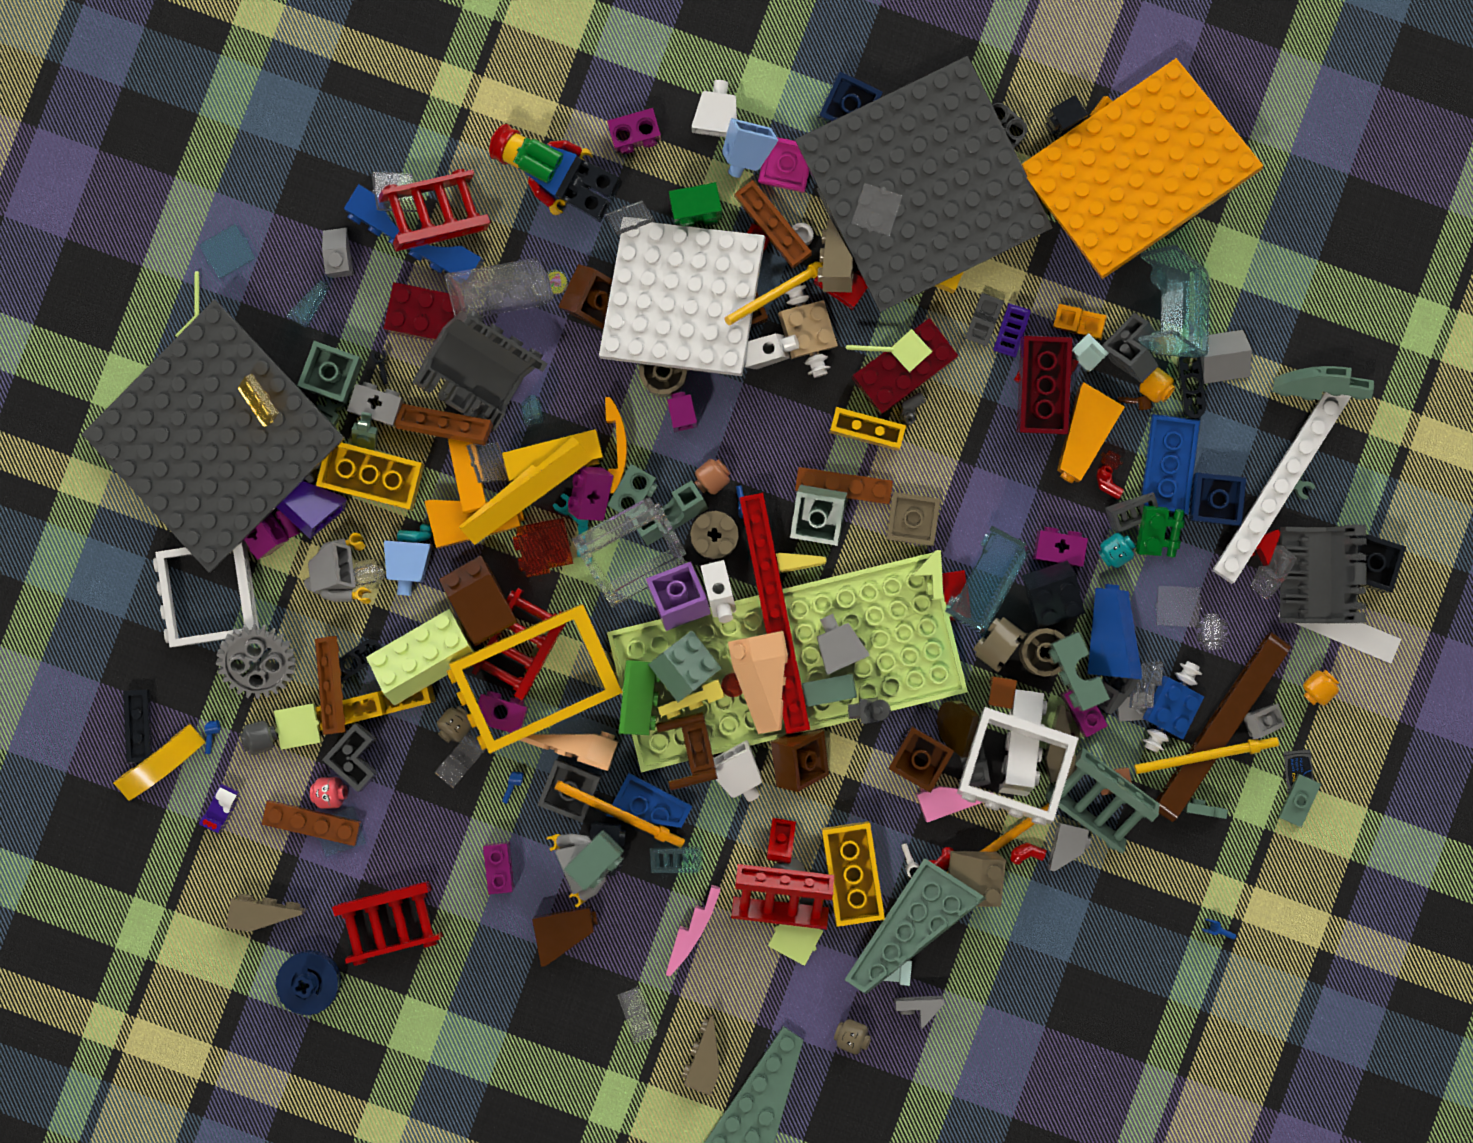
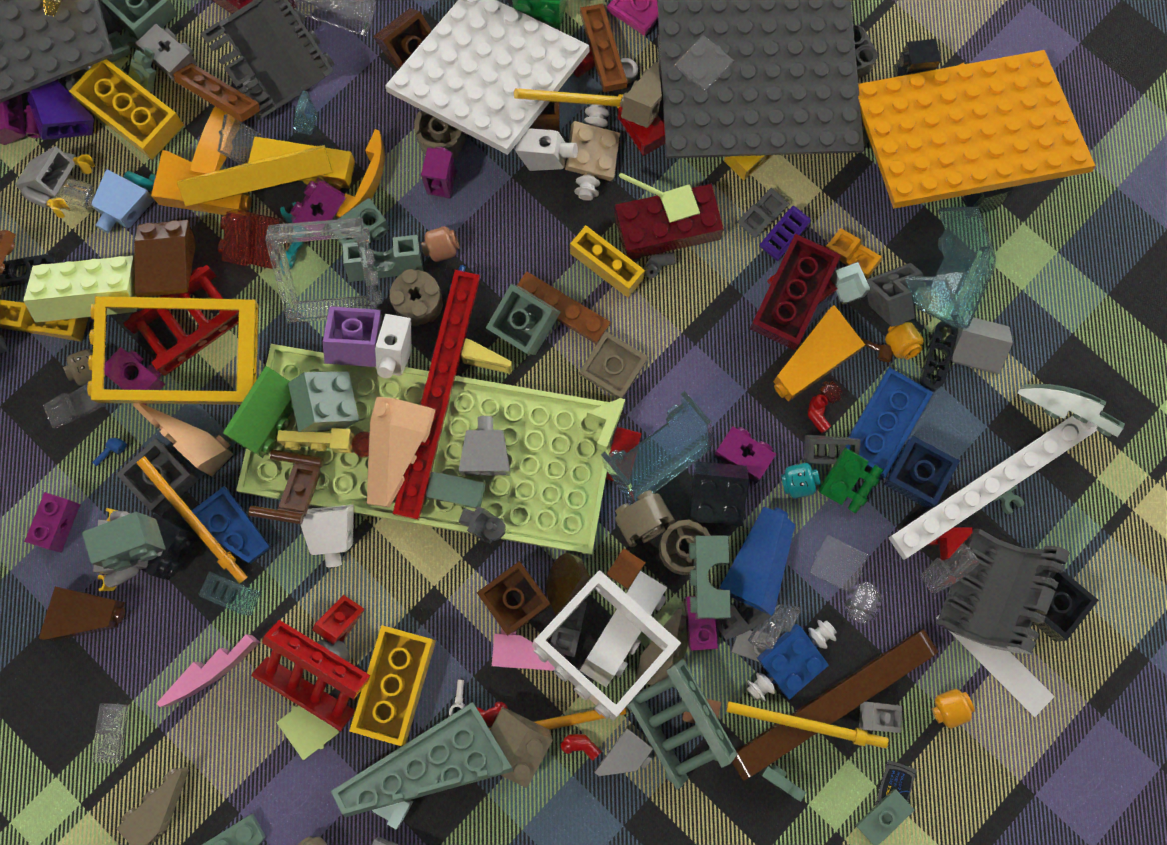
camera: 25 degrees right, 10 degrees down
(381, 365) = (193, 21): black hand -> none
(558, 281) = (382, 17): clear light blue tile -> none
(799, 759) = (395, 546): reddish brown slope -> none

